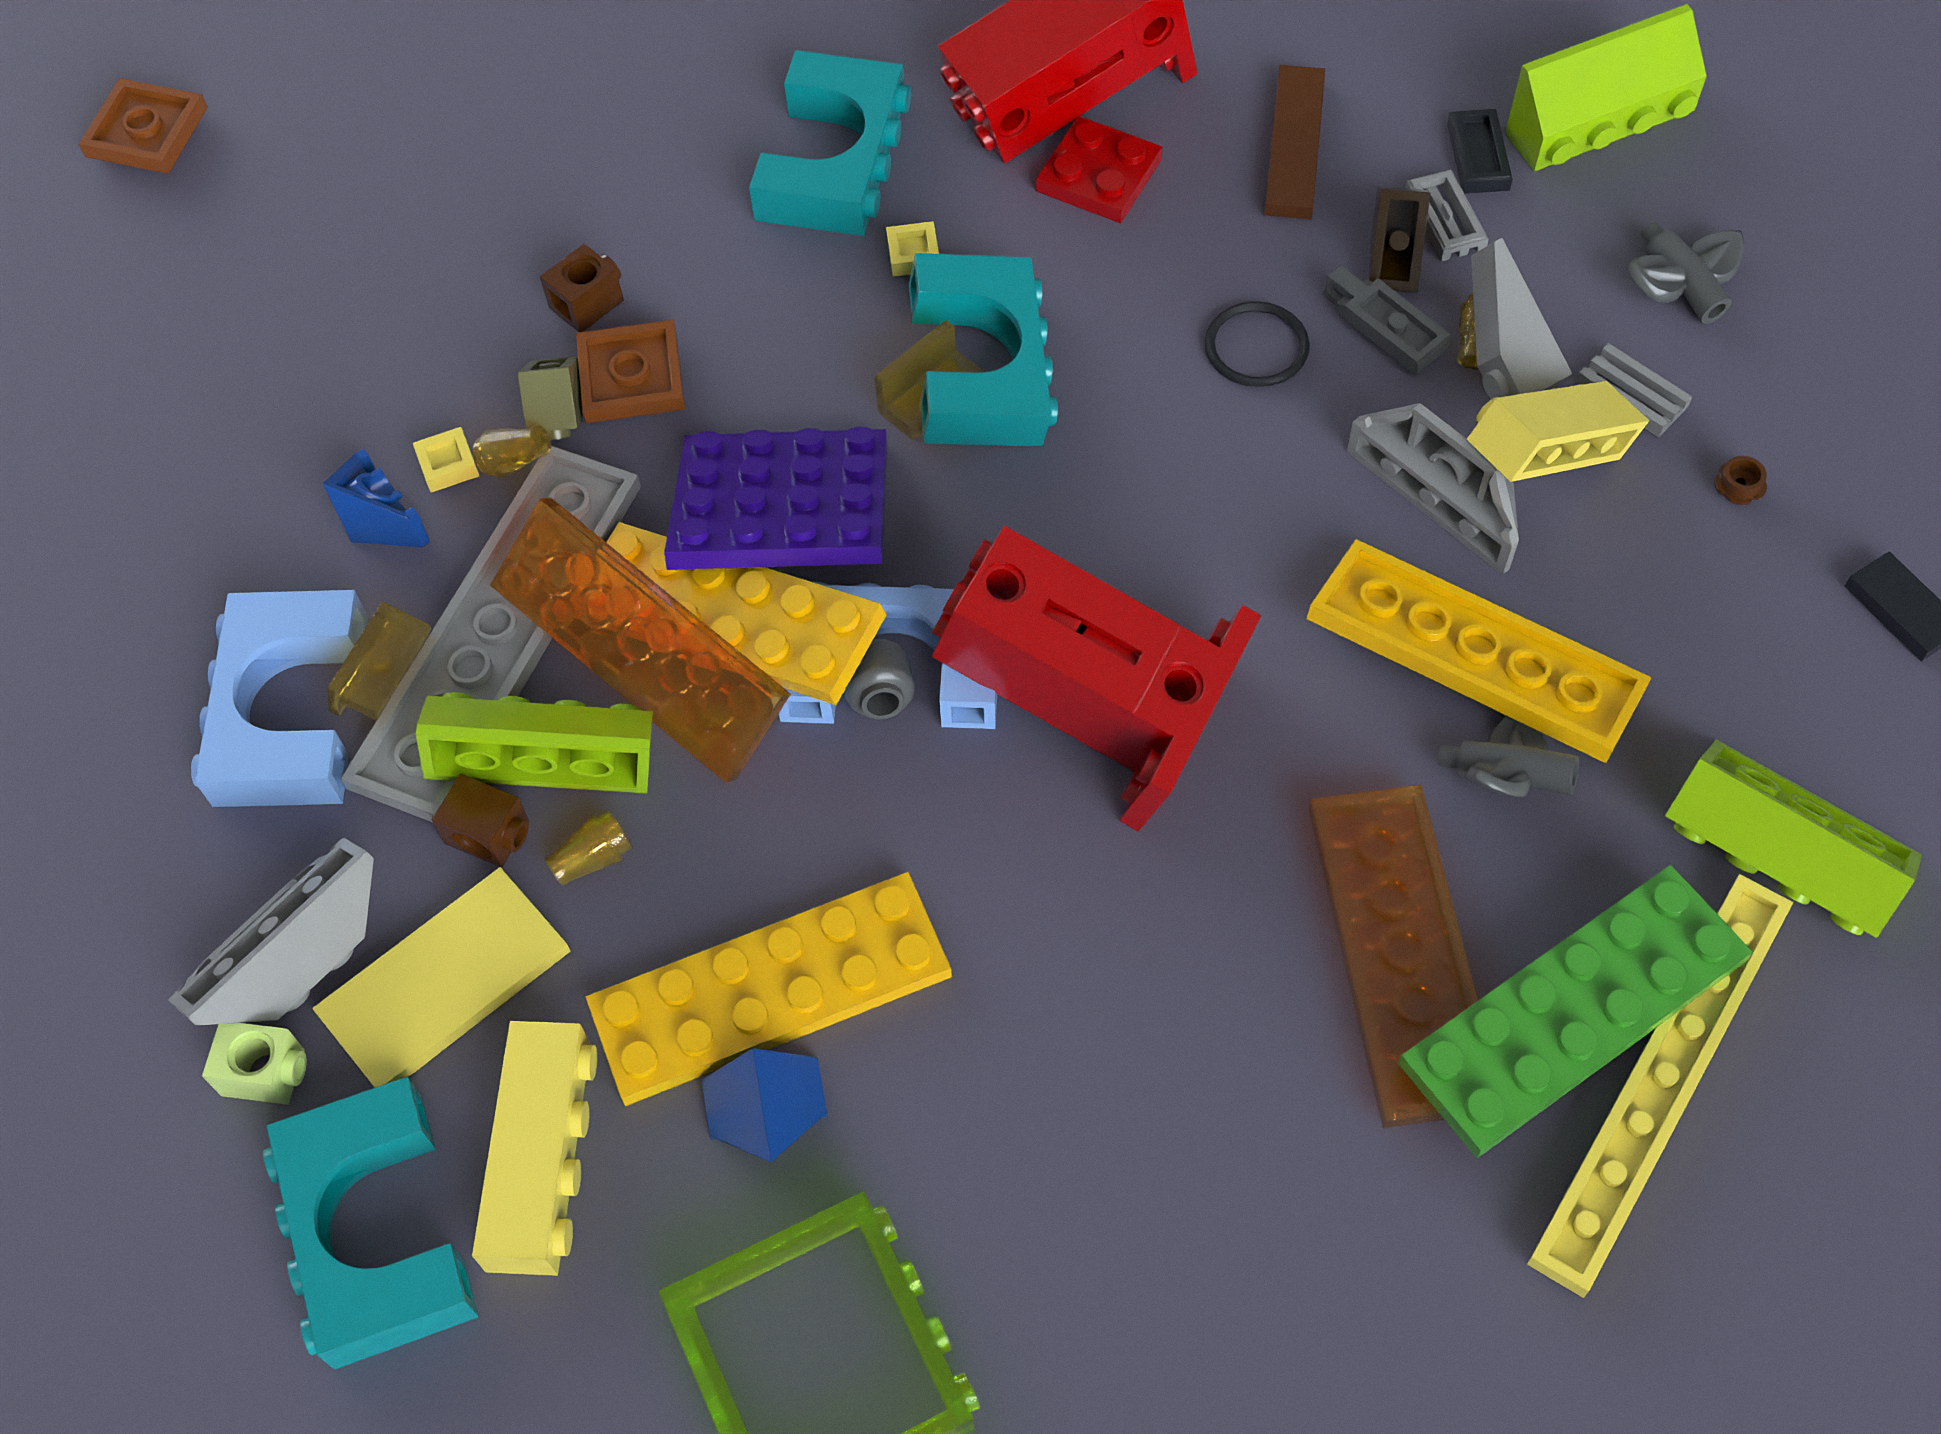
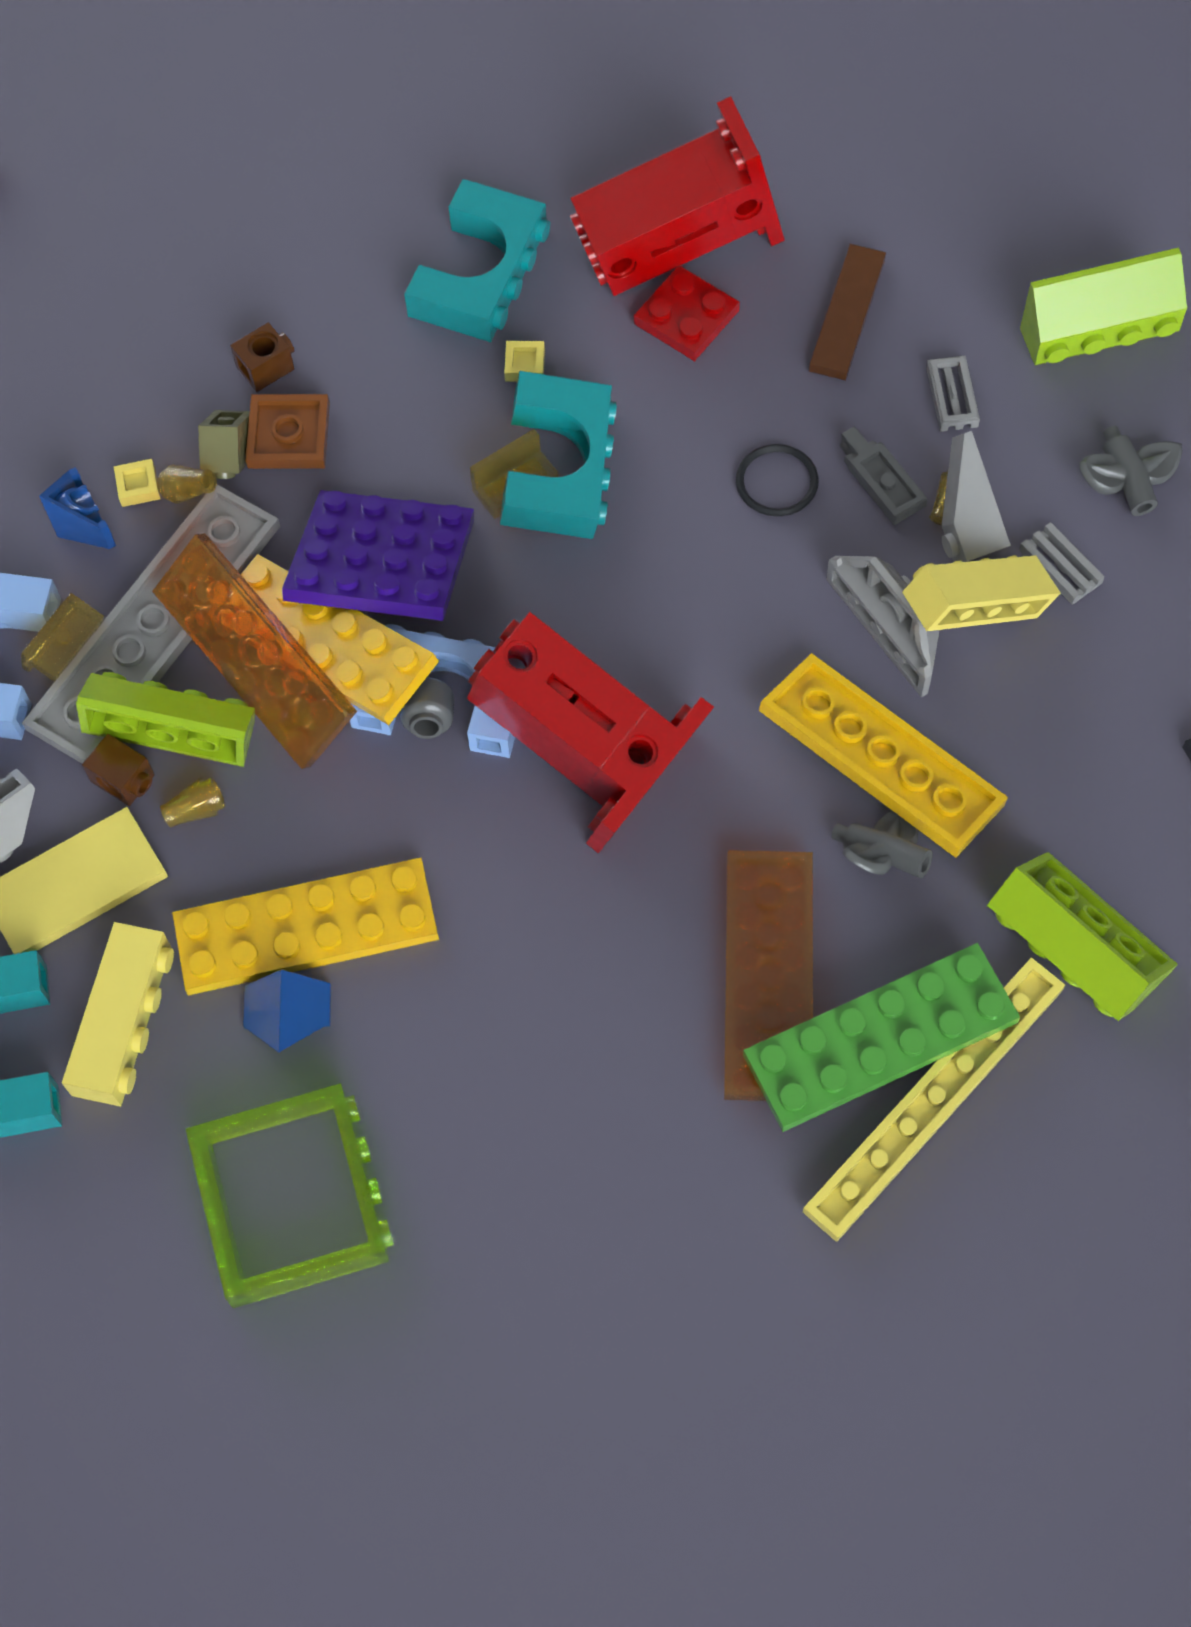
camera: 10 degrees right, 5 degrees up
(1398, 237) = (906, 408): dark brown slope -> none
(1479, 151) = (993, 342): black tile -> none
(1744, 471) = (1127, 642): reddish brown plate -> none

